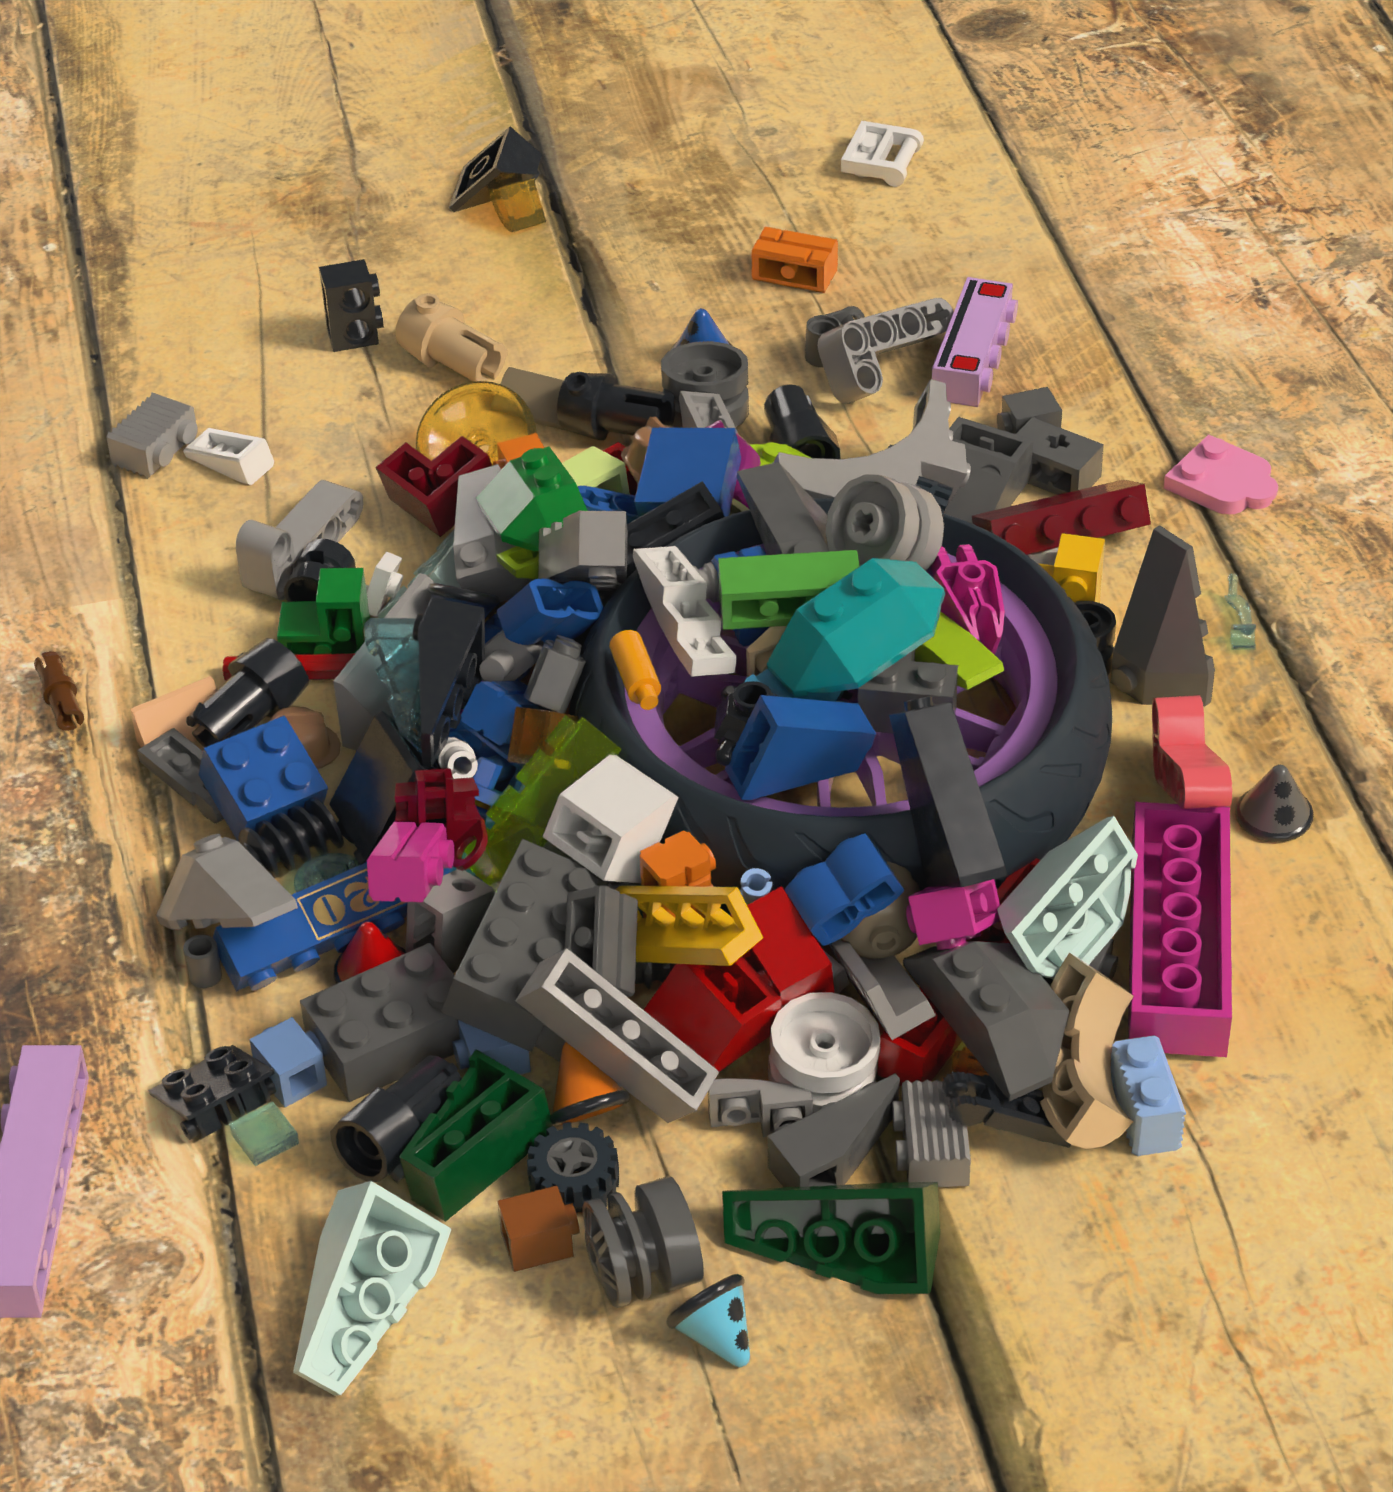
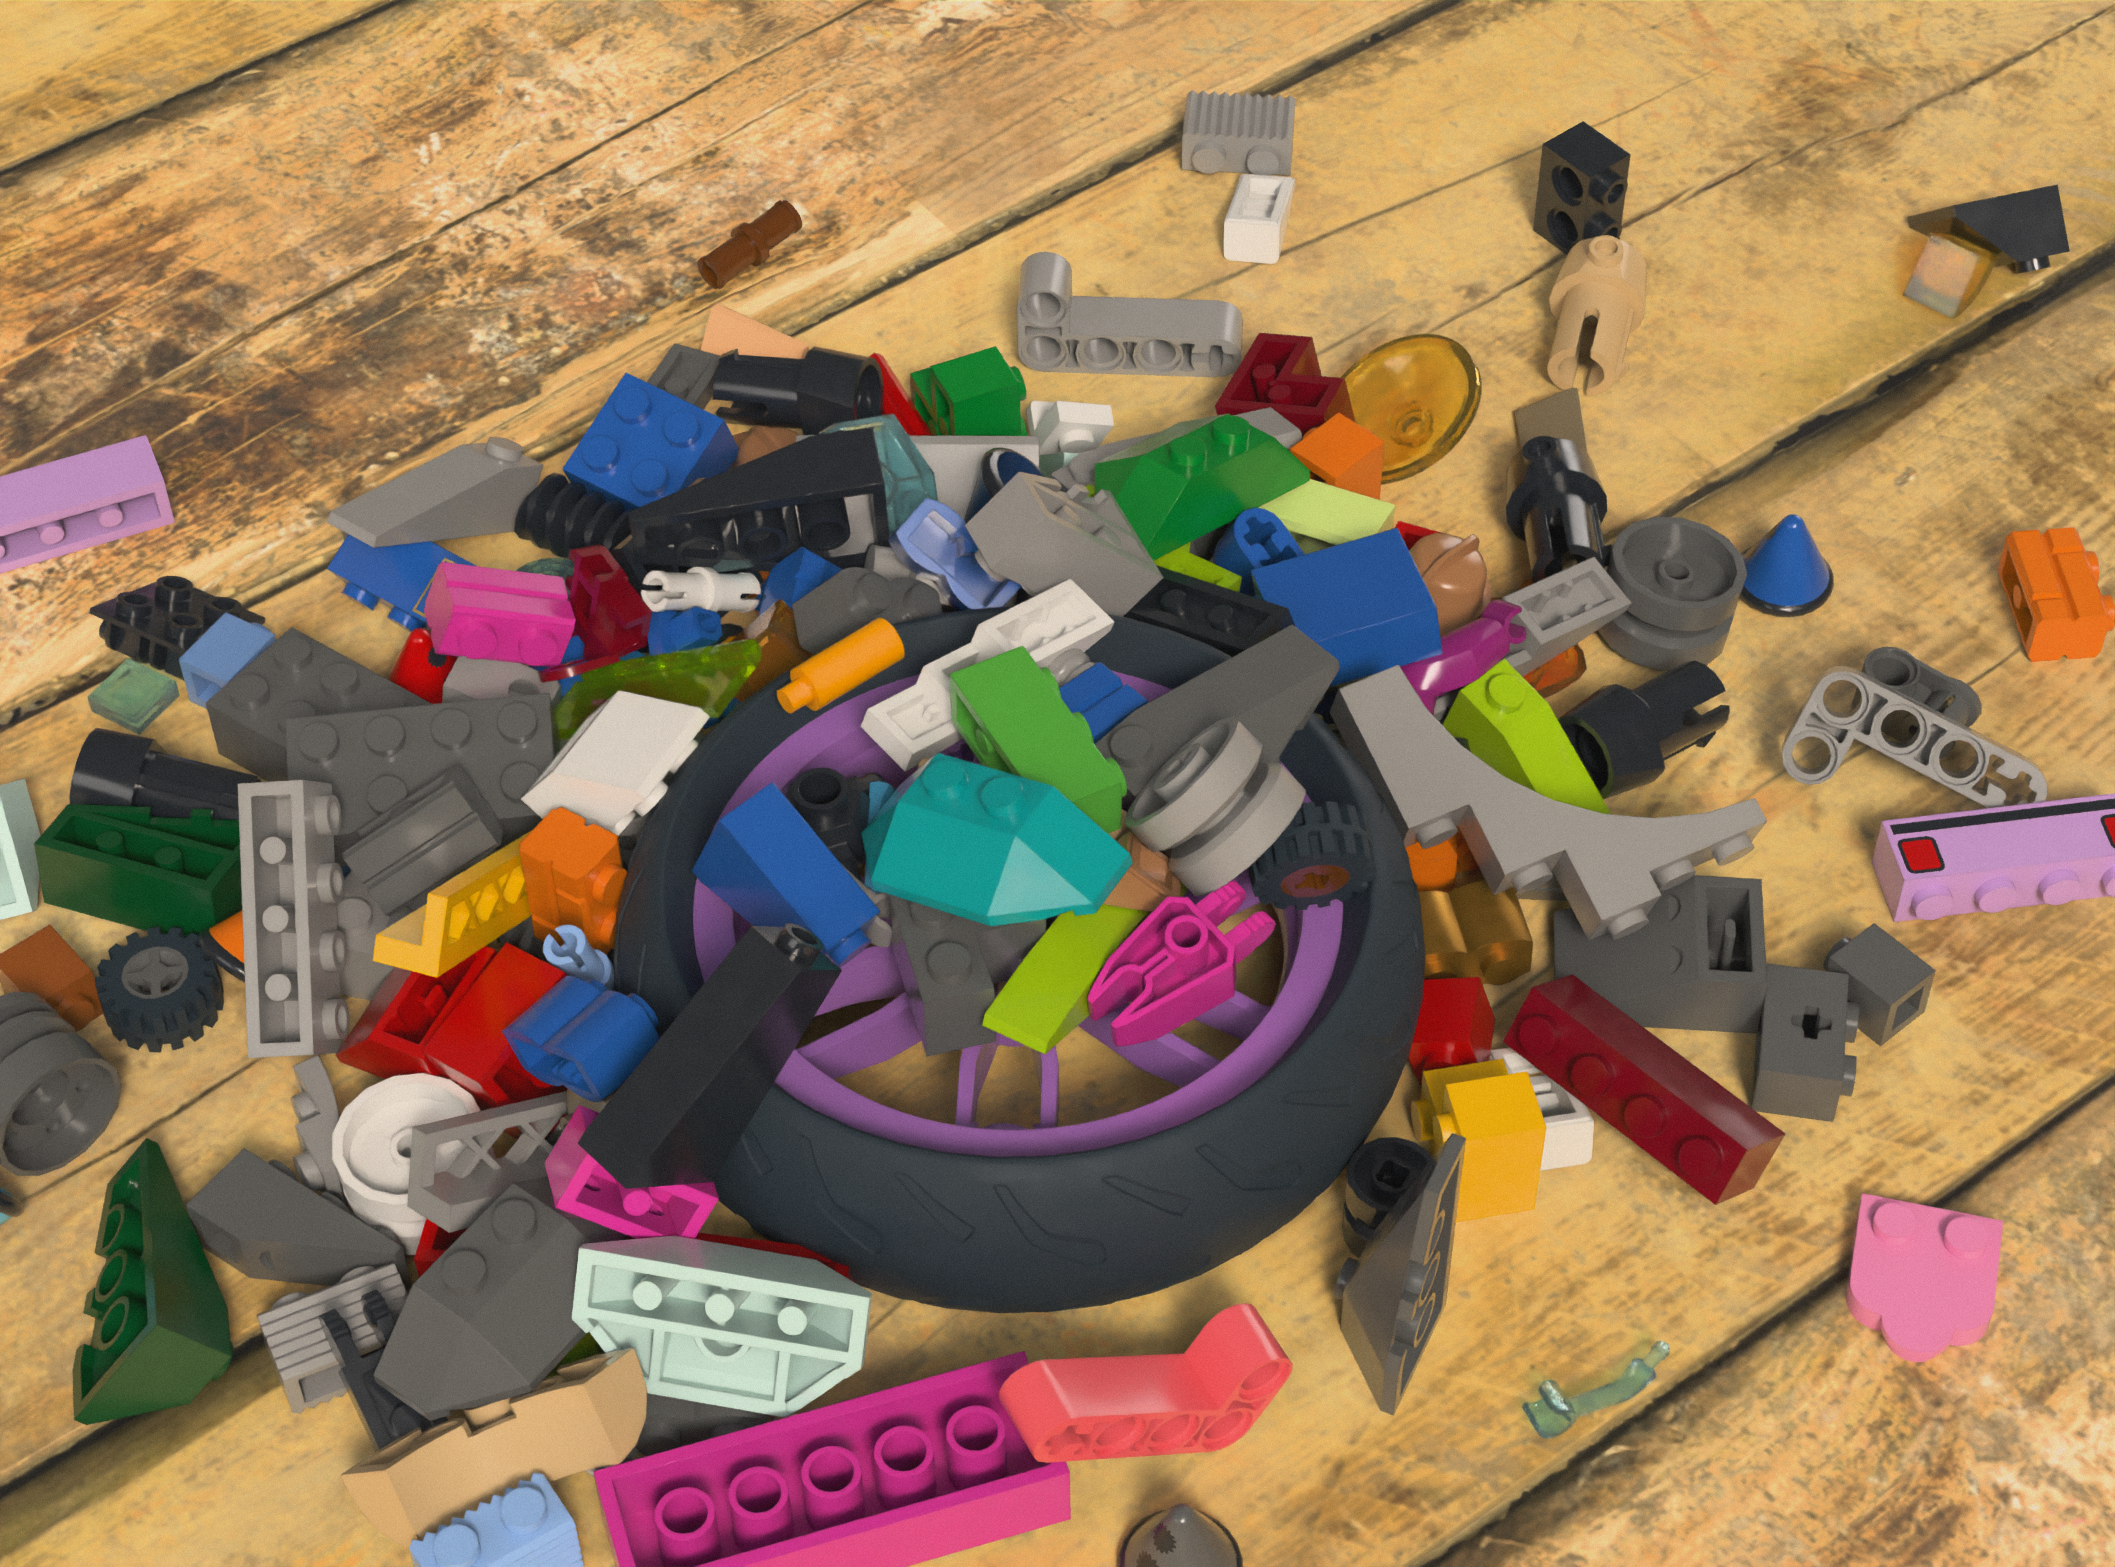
camera: 65 degrees right, 5 degrees up
(318, 554) = (1061, 372): black wheel -> none

